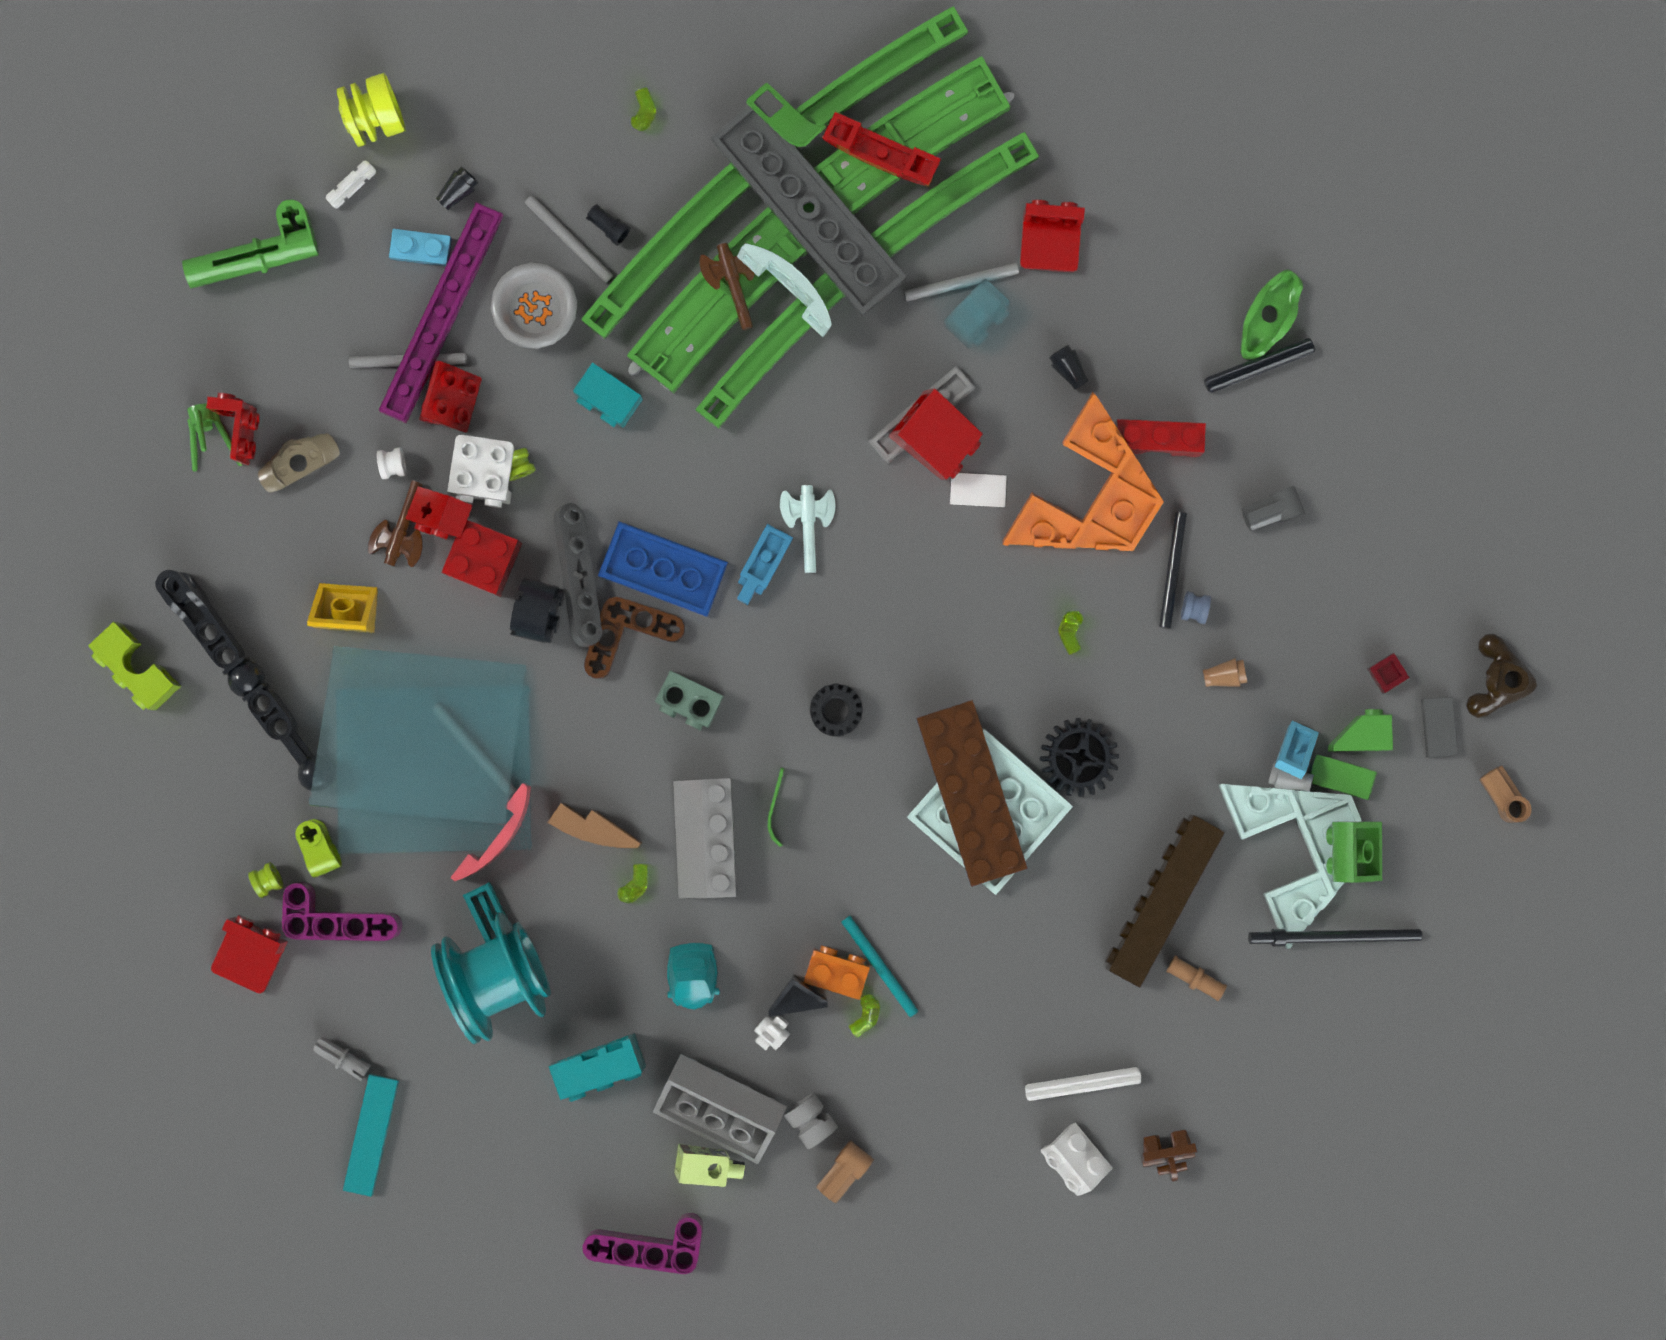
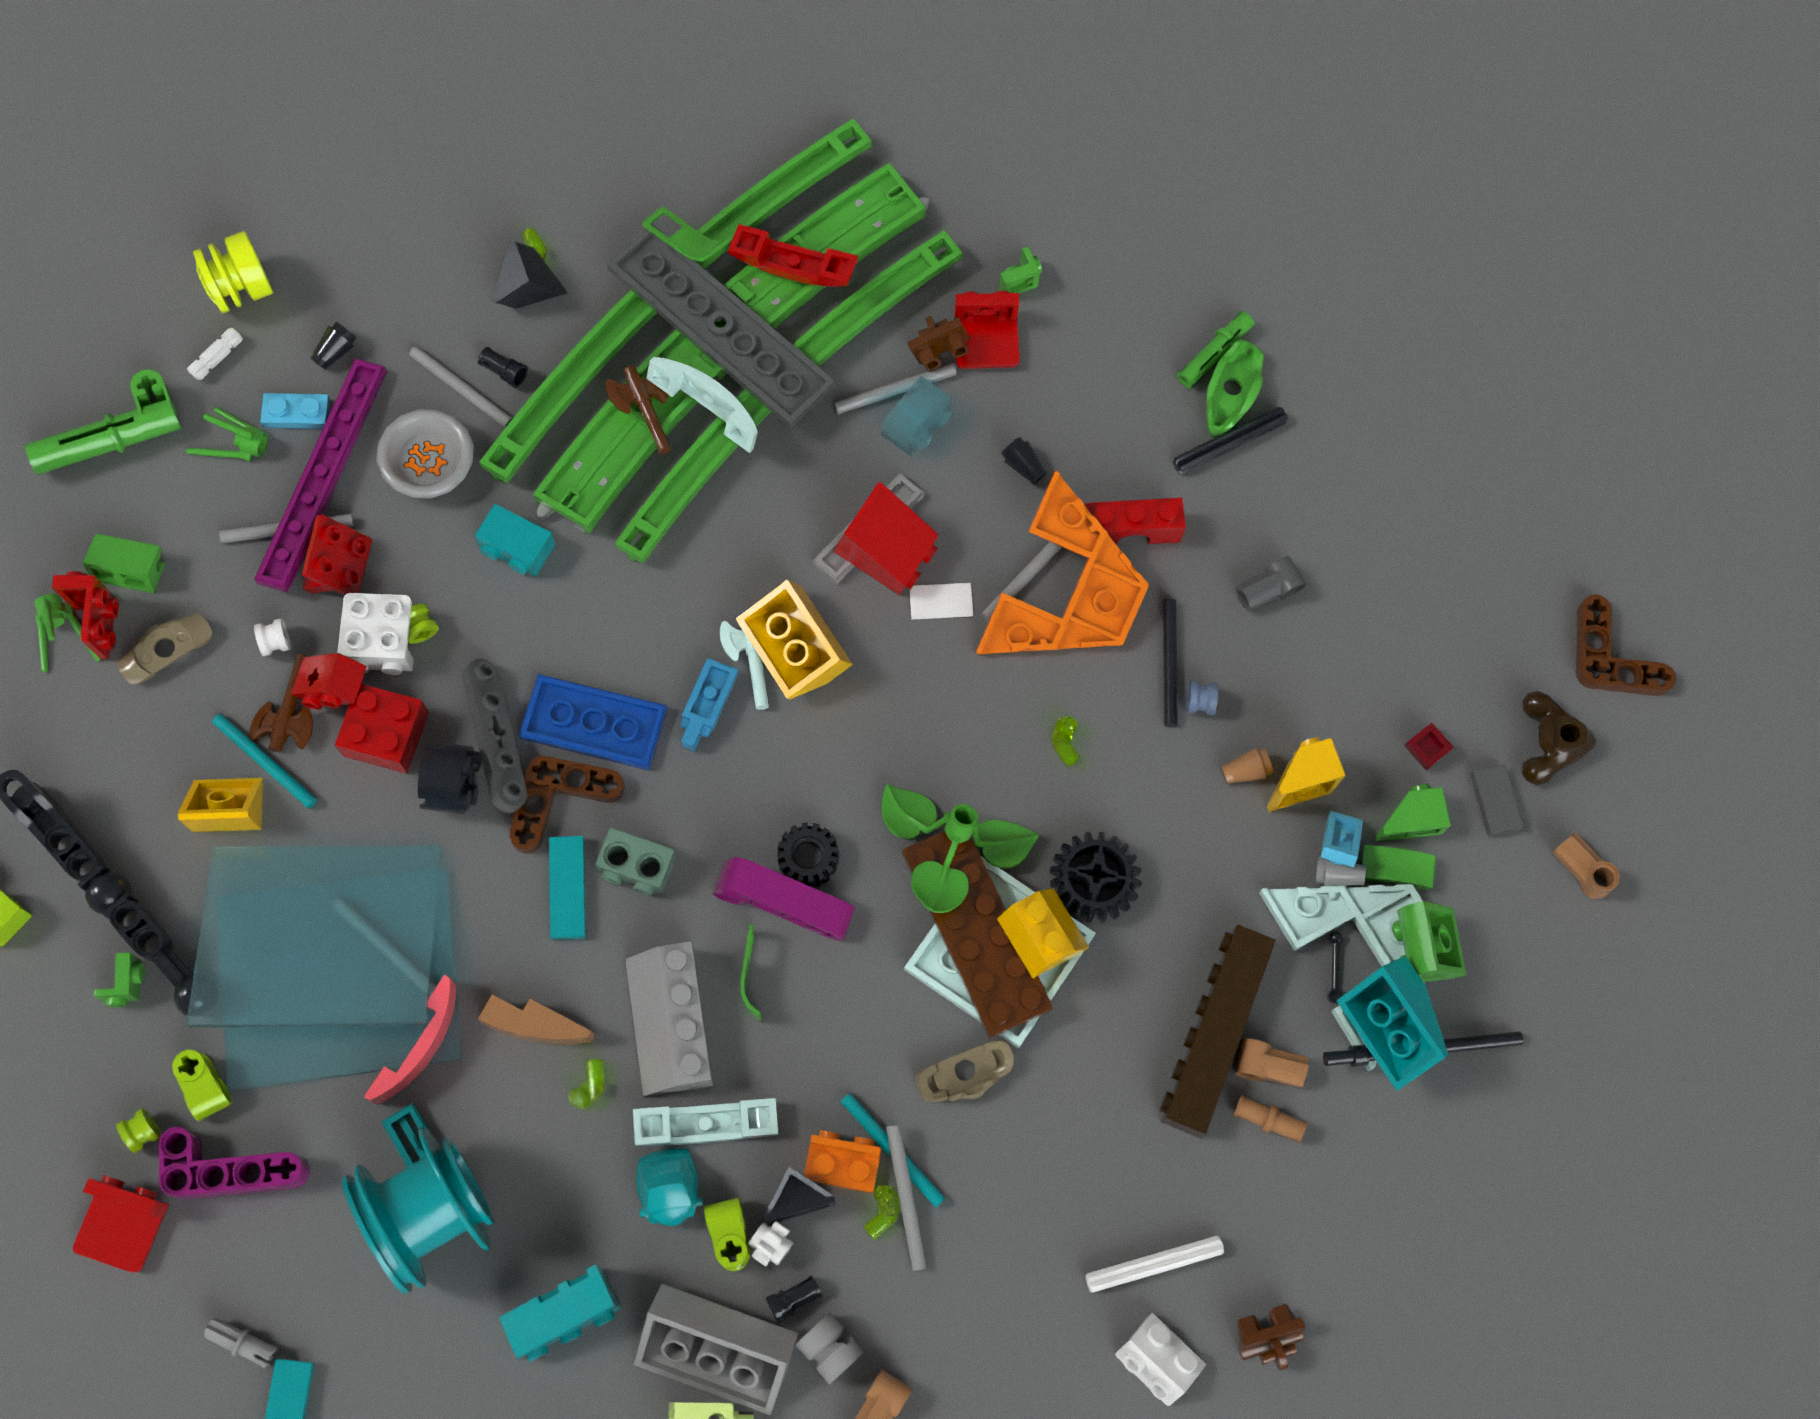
camera: 15 degrees left, 15 degrees down
(261, 750) = (128, 976): none -> bright green bracket
(265, 379) = (124, 563): none -> bright green hinge
(378, 571) = (264, 761): none -> teal bar
(379, 273) = (248, 438): none -> bright green plant
(629, 714) = (567, 887): none -> teal tile
(635, 140) = (525, 278): none -> black slope
(728, 927) = (705, 1123): none -> light aqua slope
(737, 1013) = (727, 1227): none -> lime piece
(781, 1078) = (787, 1302): none -> black pin
(811, 747) = (784, 897): none -> magenta beam
(844, 517) = (793, 640): none -> yellow slope
(886, 1006) = (906, 1197): none -> light grey bar
(945, 757) = (936, 885): none -> bright green plant
(970, 904) = (990, 1063): none -> dark tan piece
(1005, 239) = (938, 339): none -> reddish brown hips
(1028, 805) = (1042, 931): none -> yellow slope
(1050, 480) = (1024, 576): none -> light grey bar
(1087, 186) = (1024, 277): none -> bright green bracket
(1197, 931) = (1261, 1062): none -> medium nougat piece
(1268, 880) = (1334, 994): none -> black hinge
(1269, 267) = (1215, 349): none -> bright green pin
(1275, 689) = (1308, 775): none -> yellow slope
(1313, 918) = (1396, 1021): none -> teal slope
(1557, 608) = (1602, 659): none -> reddish brown beam

